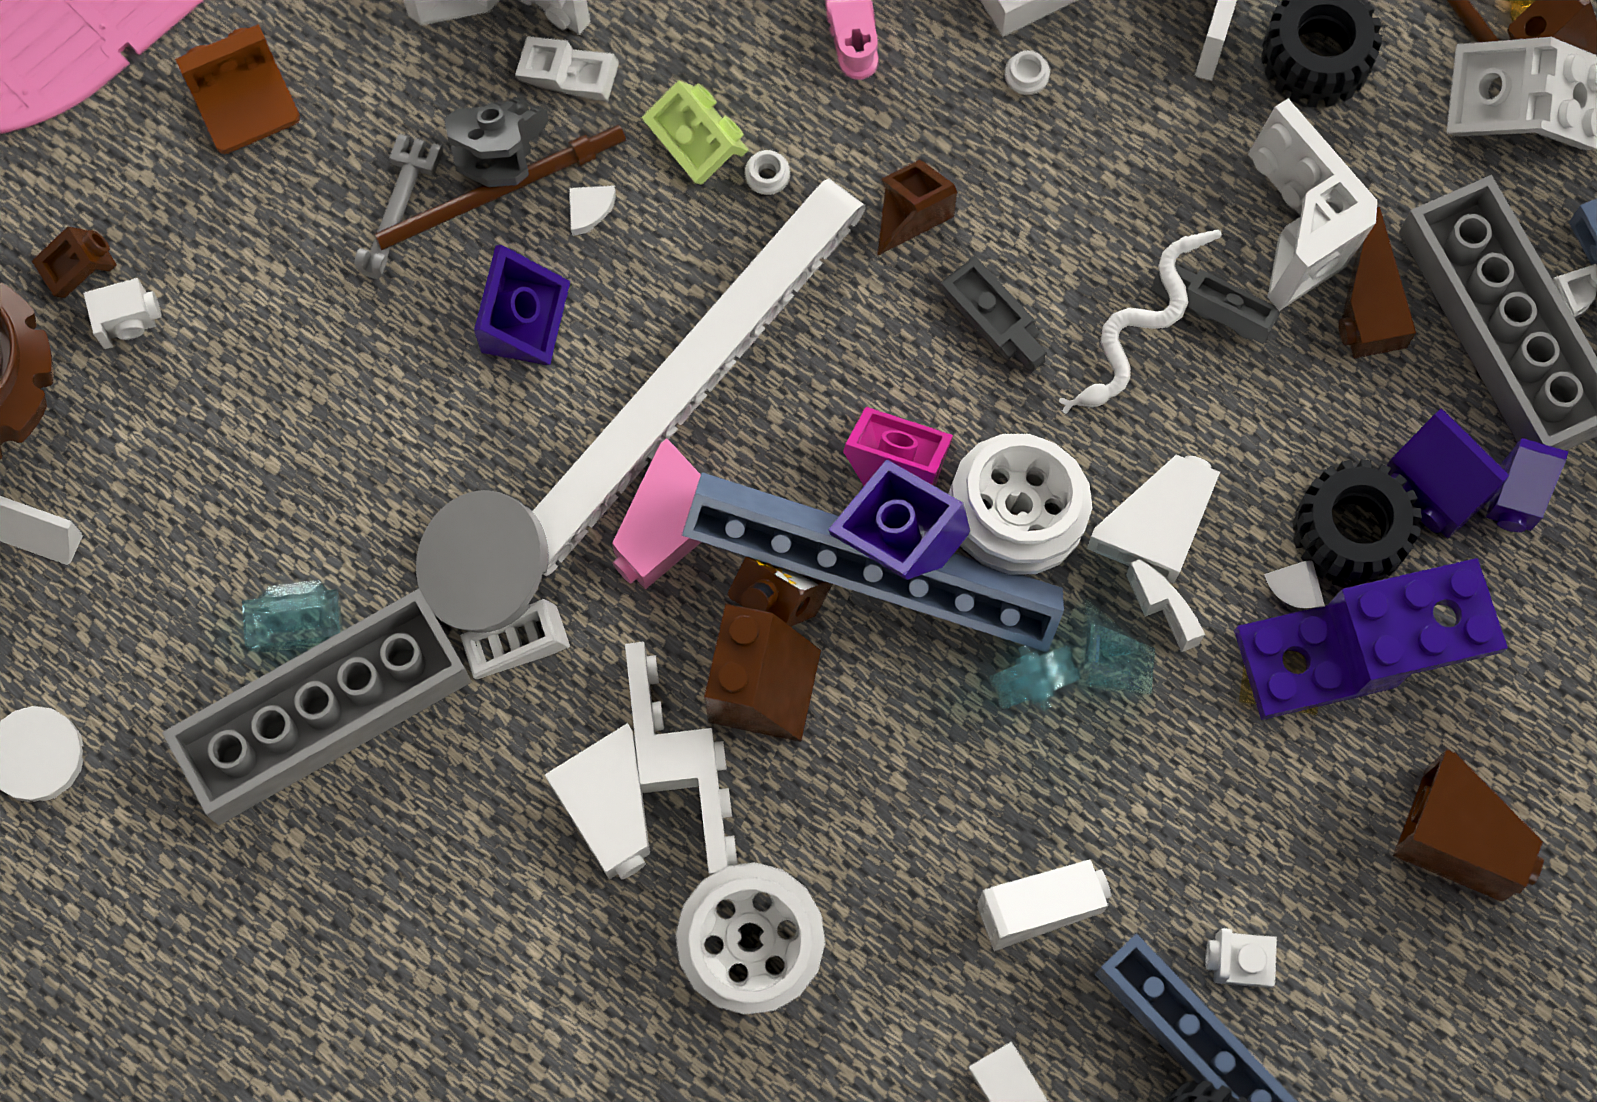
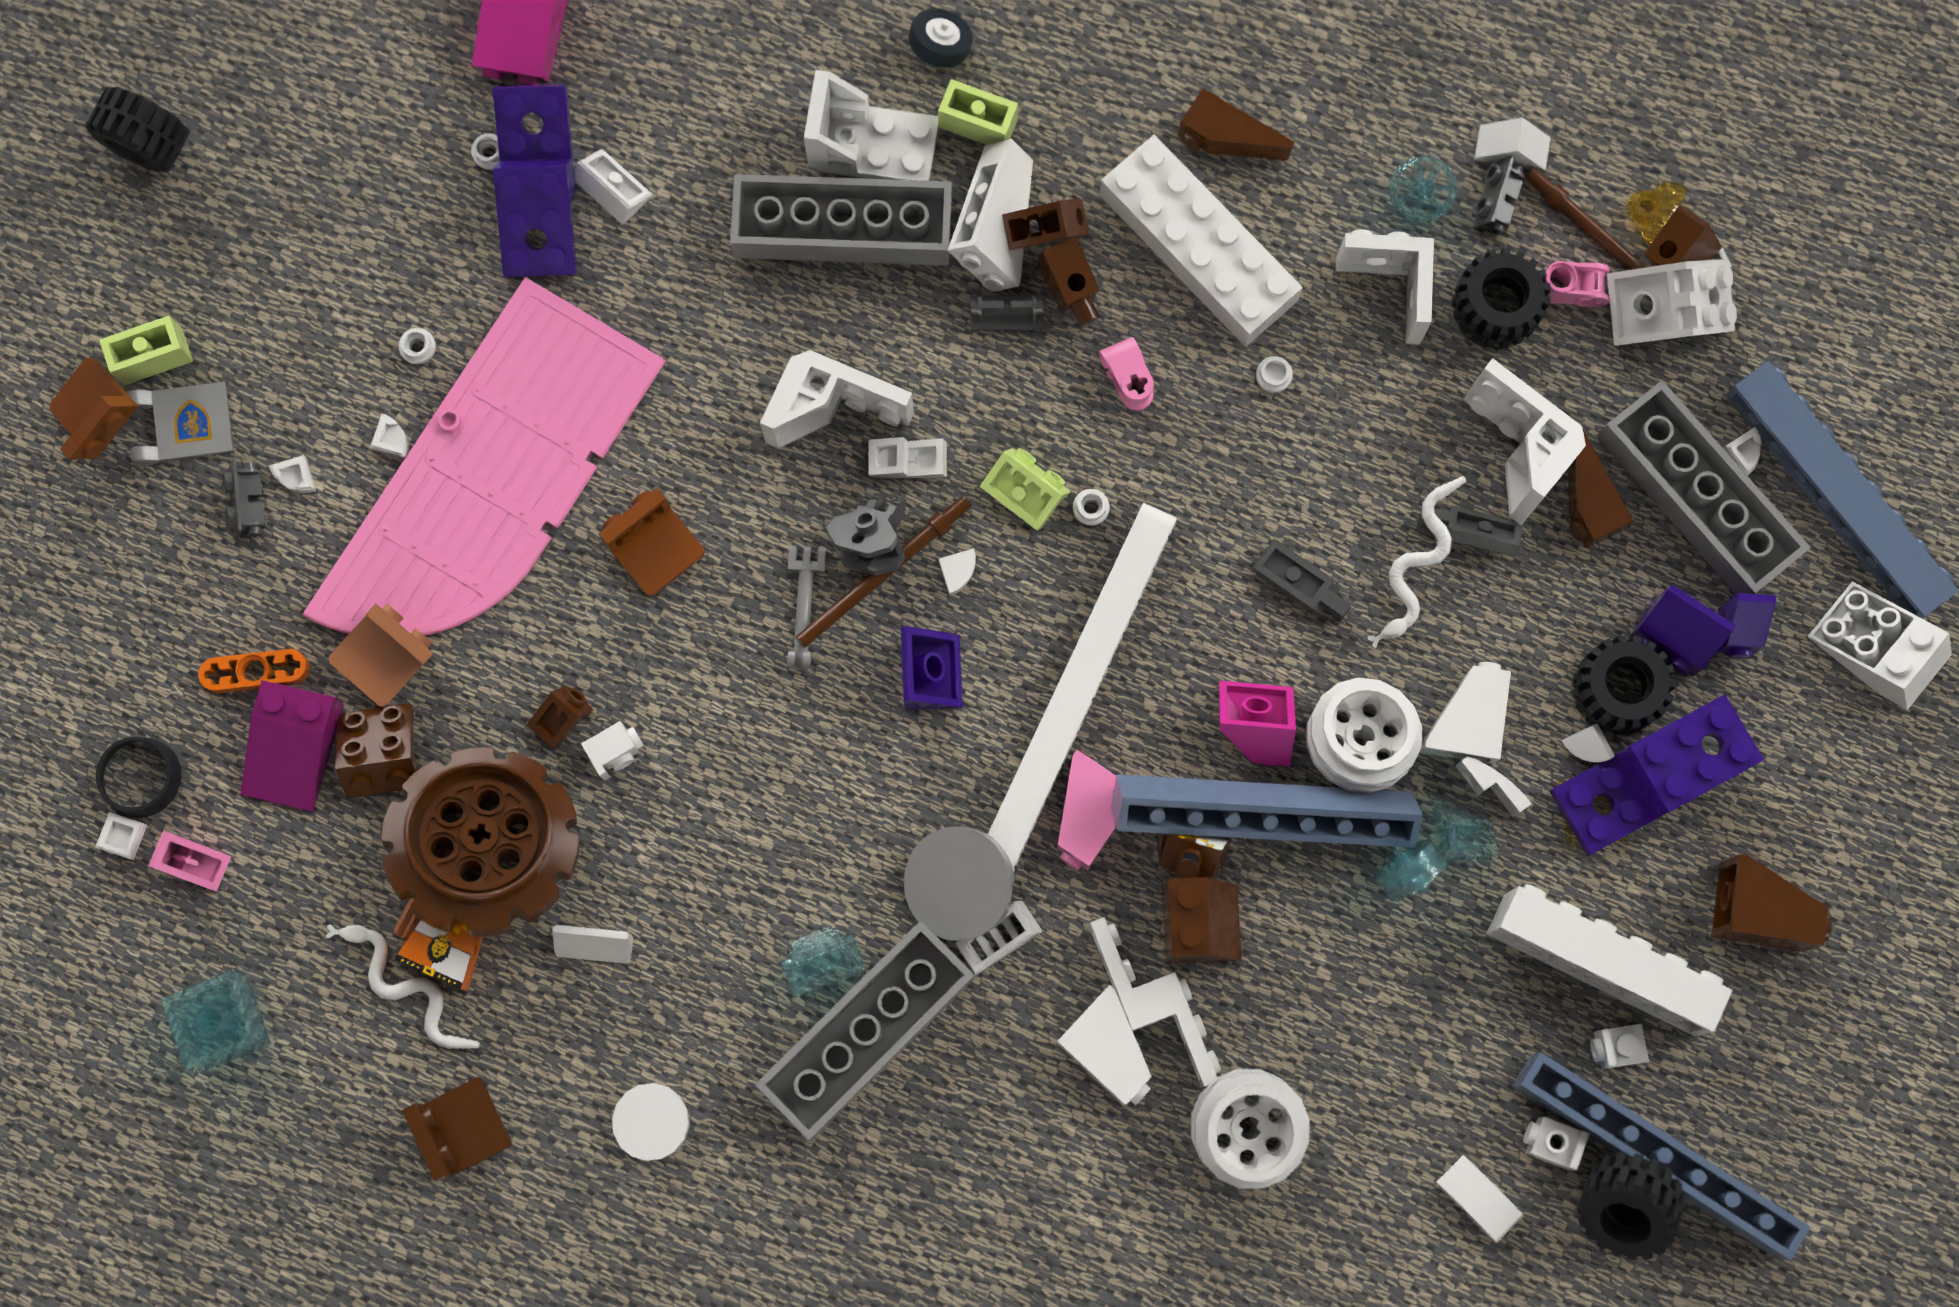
camera: 15 degrees left, 5 degrees up
(903, 522) = (1284, 780): dark purple slope -> none
(914, 203) = (1213, 504): reddish brown slope -> none
(1042, 903) = (1461, 1044): white slope -> none
(1136, 1074) = (1538, 1141): none -> white brick
(1254, 846) = (1610, 961): none -> white brick
(1419, 50) = (1582, 283): none -> bright pink piece

